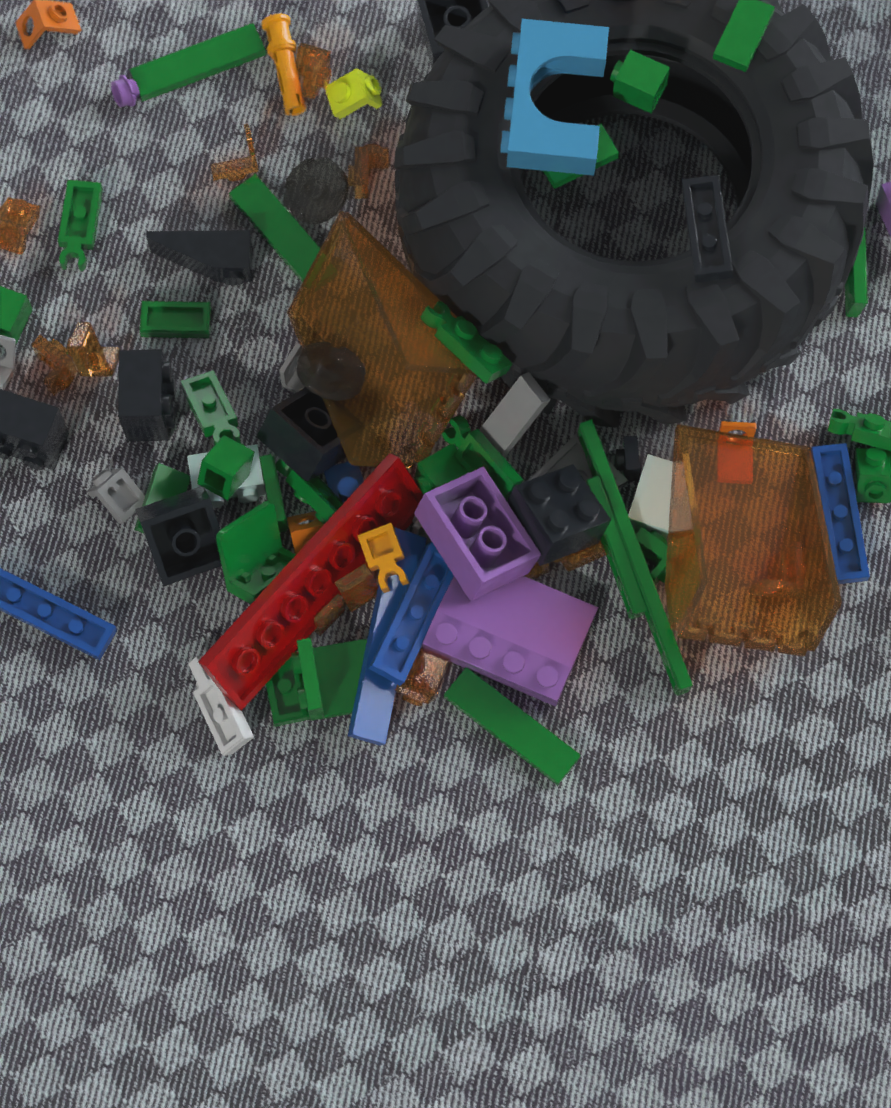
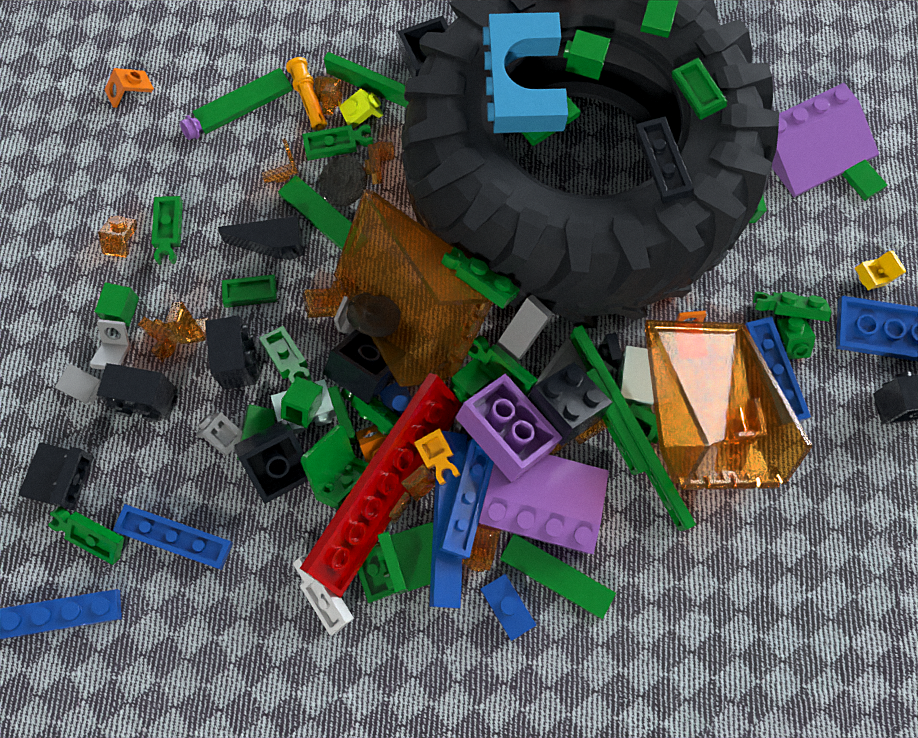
camera: 10 degrees left, 0 degrees up
(269, 346) = (323, 301): none -> clear orange bracket
(313, 135) = (335, 141): none -> green plate
(365, 53) = (365, 79): none -> green tile
(444, 754) = (508, 607): none -> blue tile
(770, 143) = (699, 88): none -> green tile

